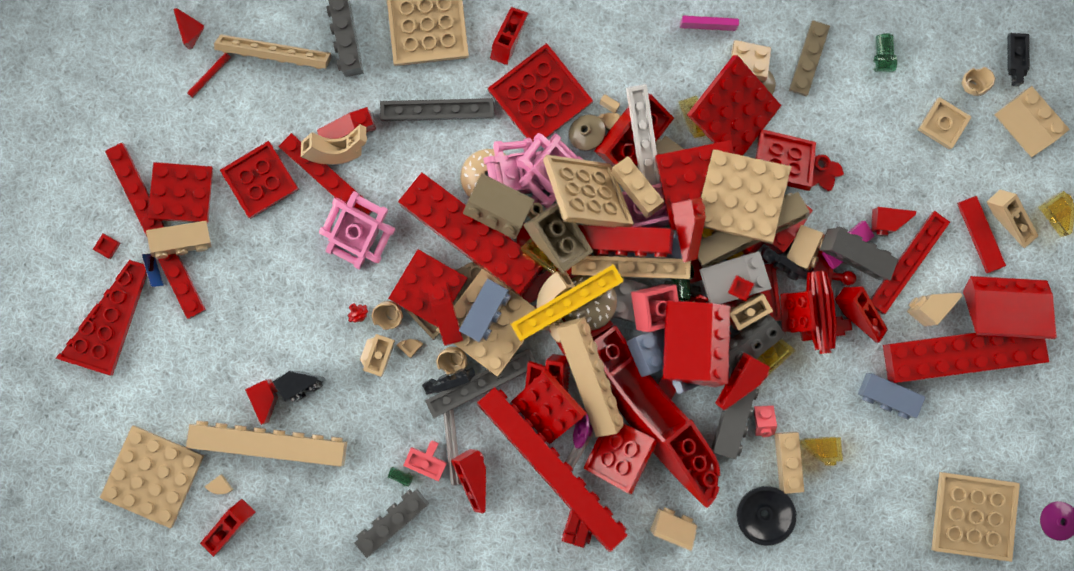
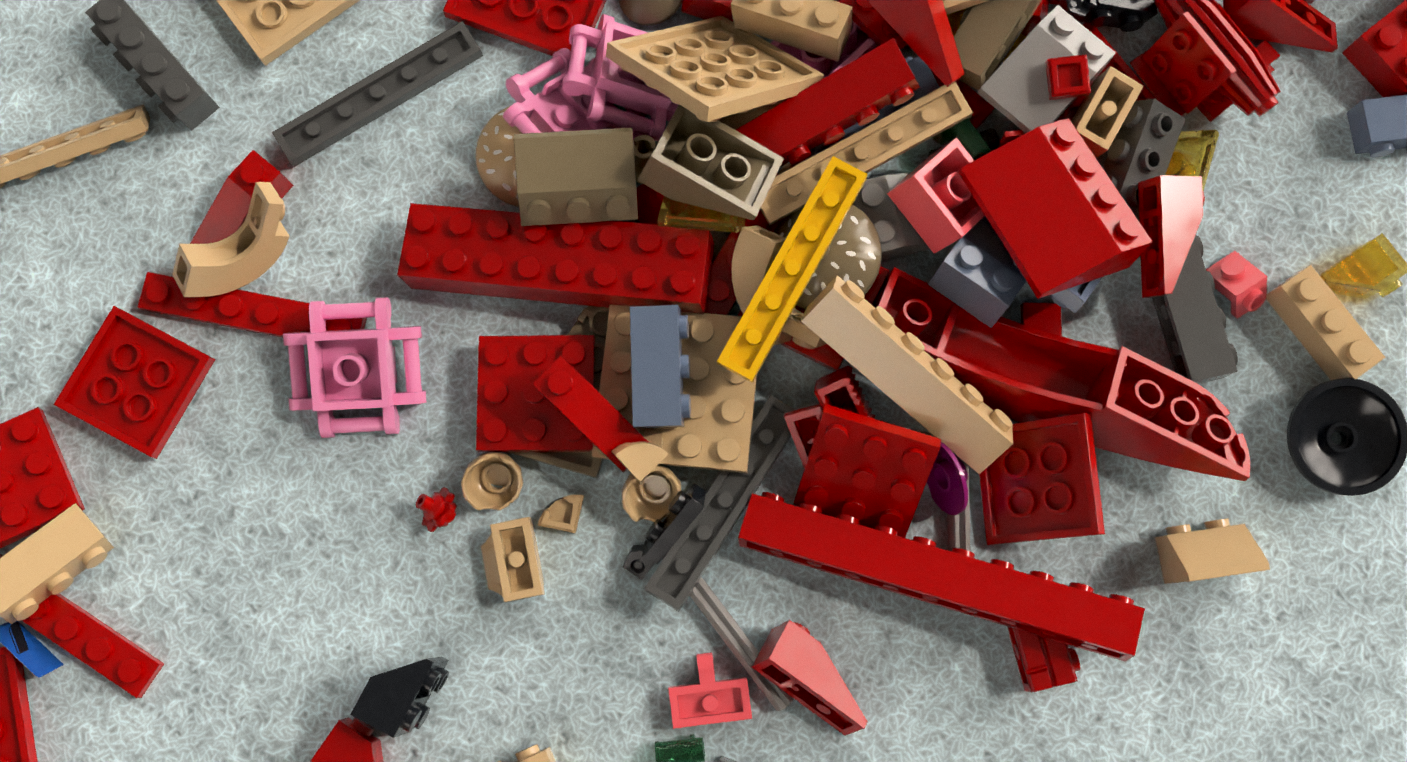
camera: 25 degrees left, 5 degrees down
(454, 344) = (639, 457): none -> tan tile

